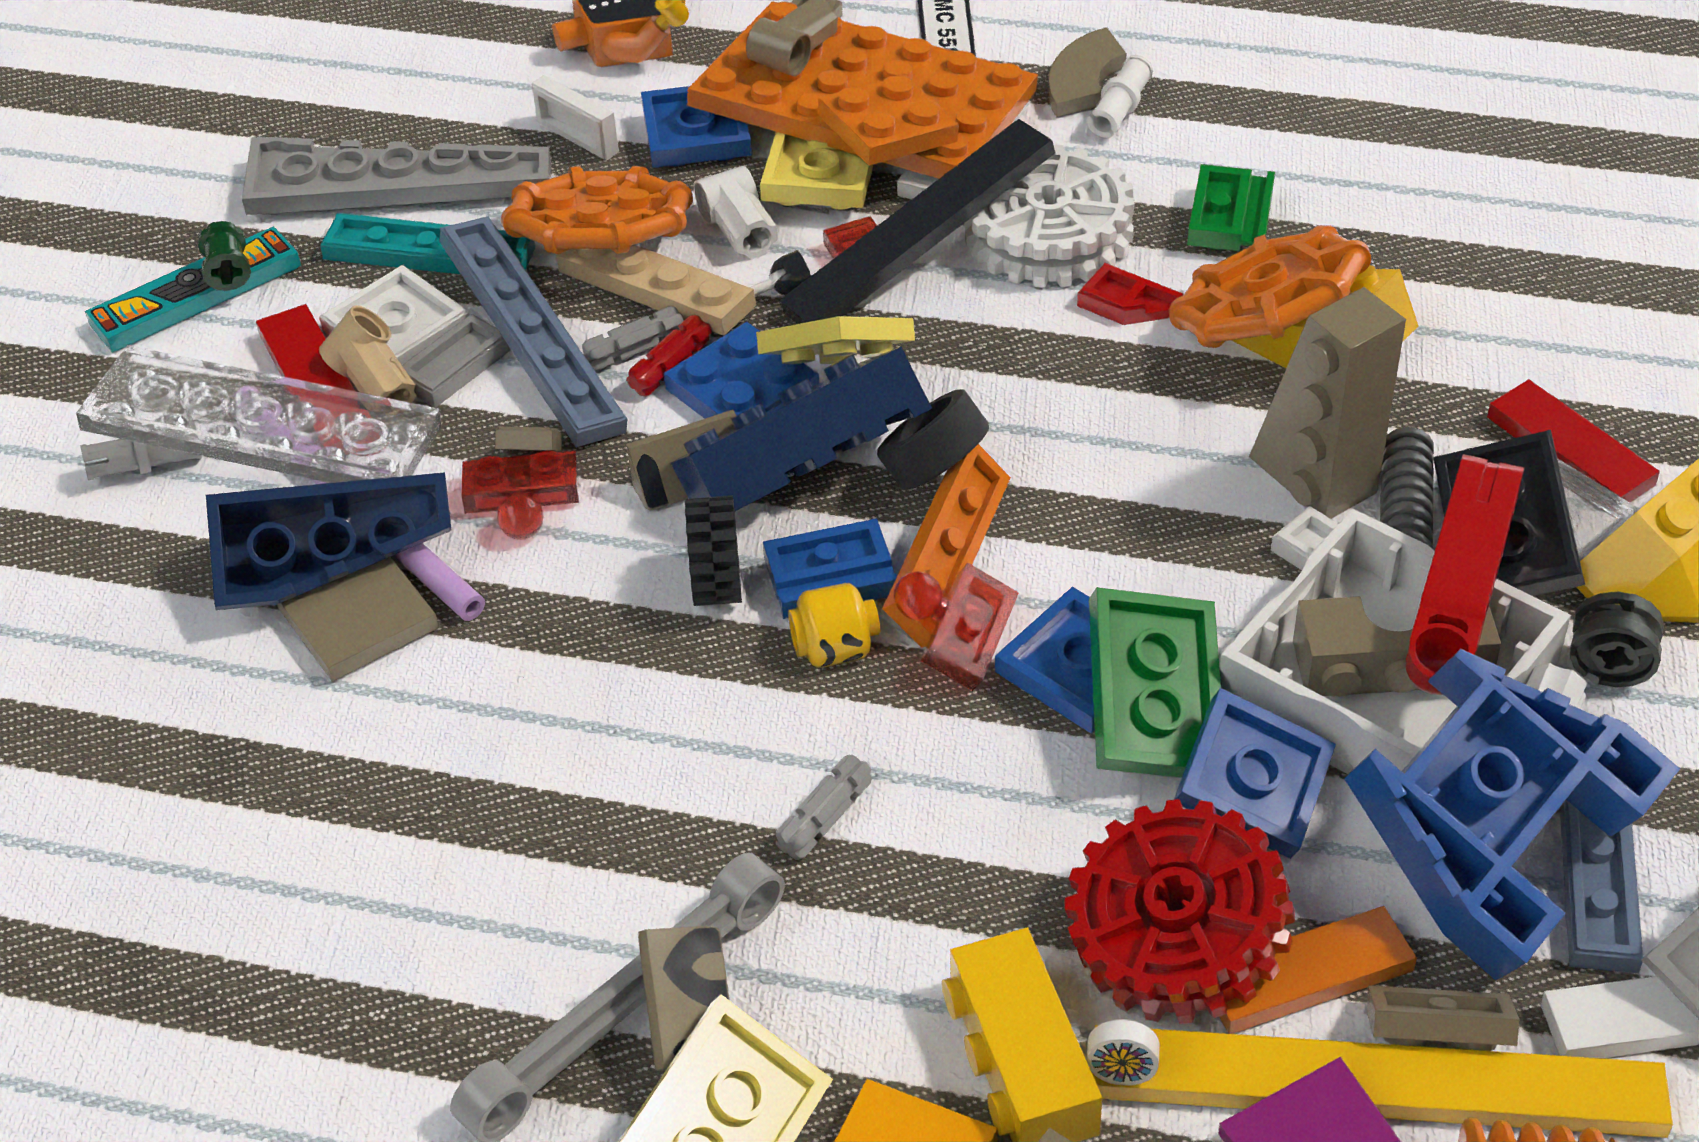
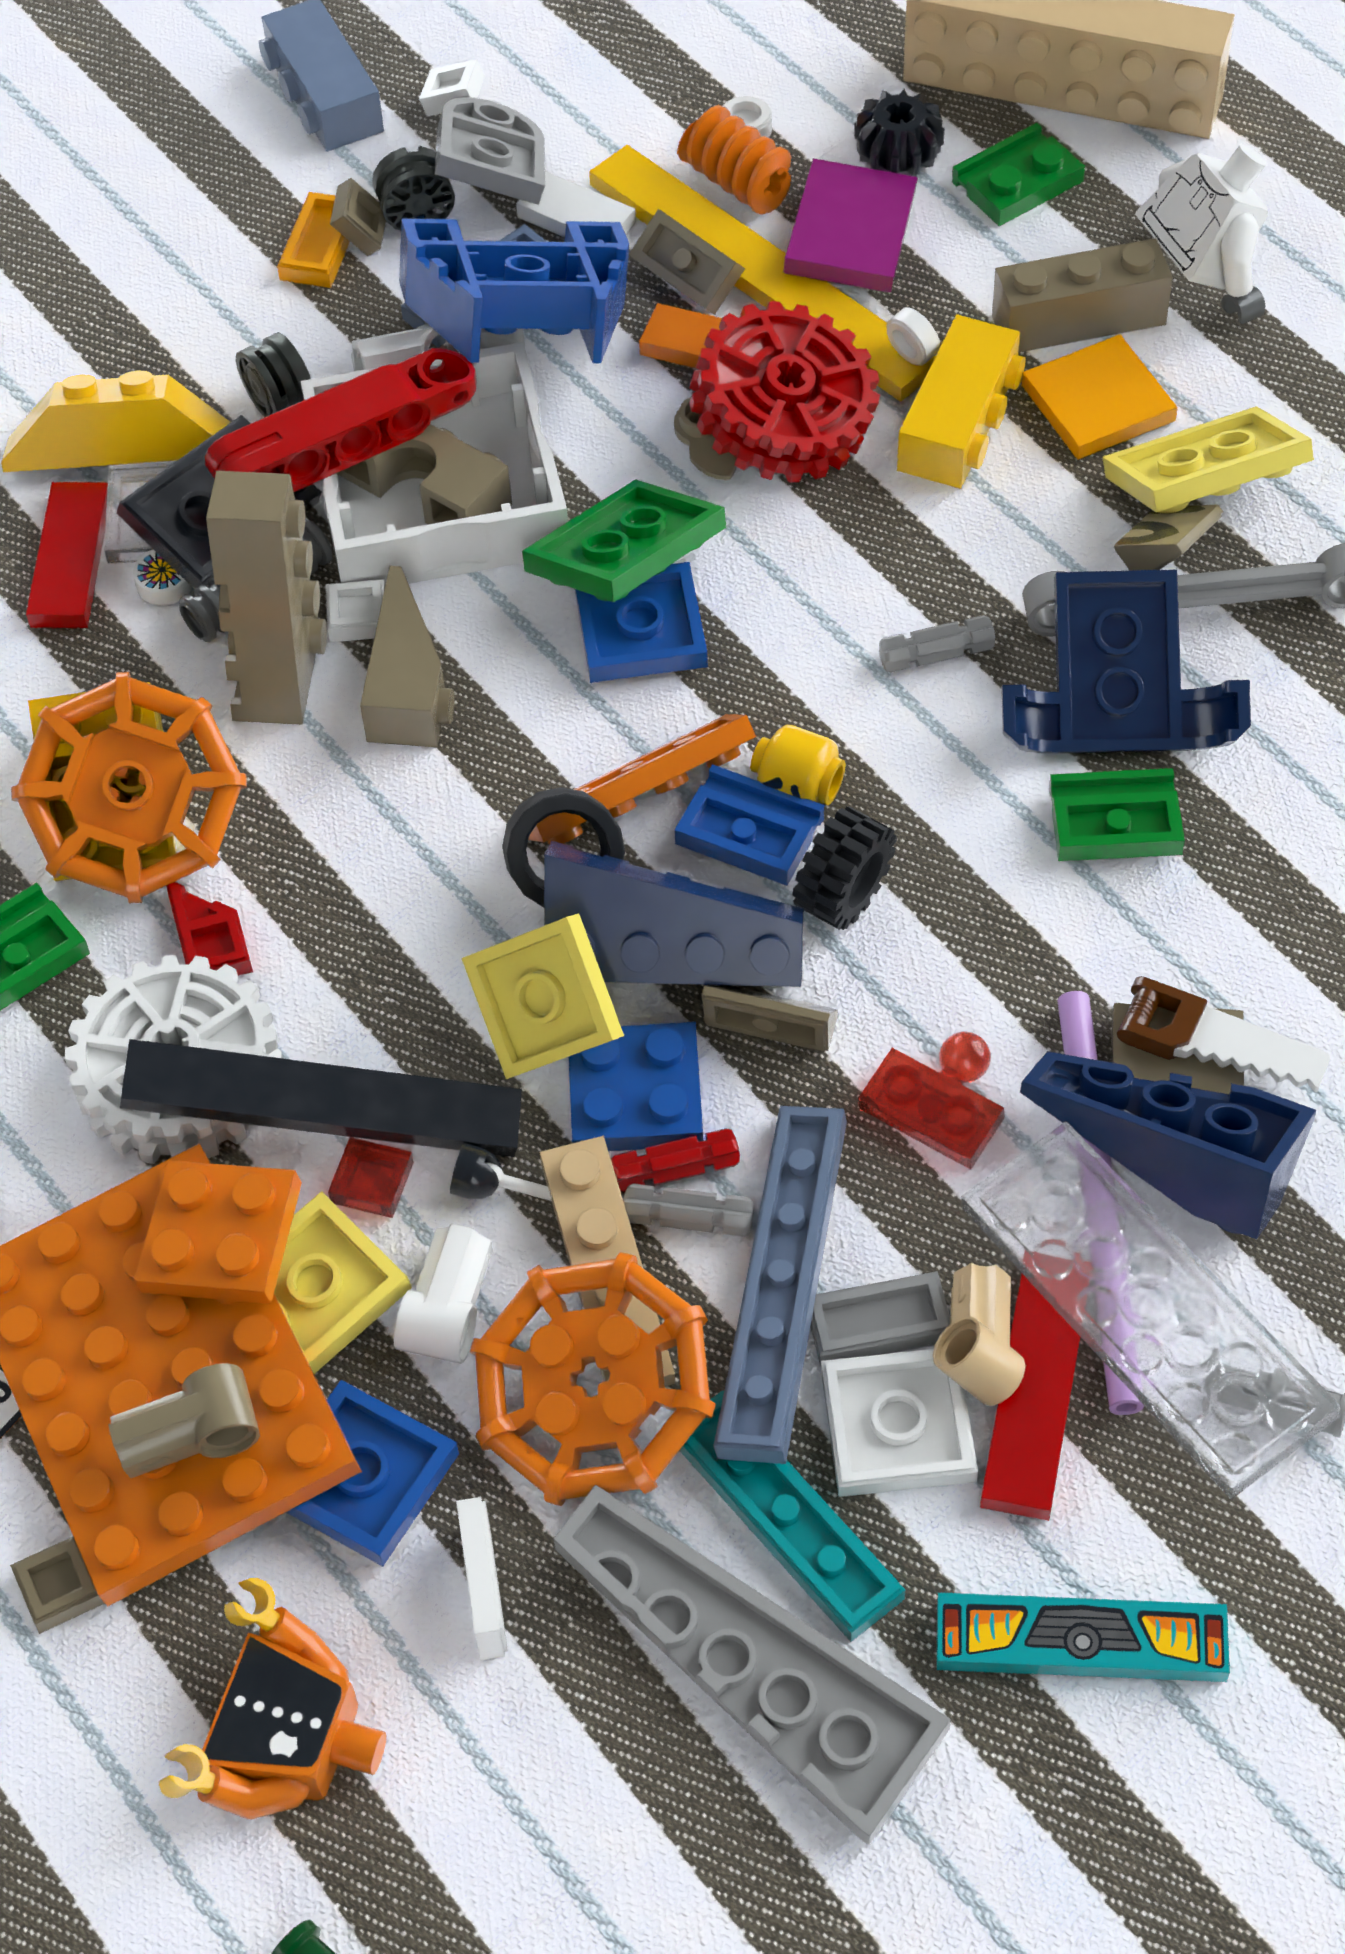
camera: 140 degrees left, 10 degrees up
(224, 261) = (1037, 1600): dark green bush -> none
(333, 624) = (1216, 1036): none -> piece
(528, 439) = (893, 1133): dark tan tile -> none
(543, 751) = (1116, 814): none -> green plate
(636, 848) = (1121, 675): none -> dark blue piece
(967, 620) = (705, 694): clear red plate -> none
(1213, 508) = (404, 680): none -> dark tan slope
(1258, 768) = (627, 450): plate -> none

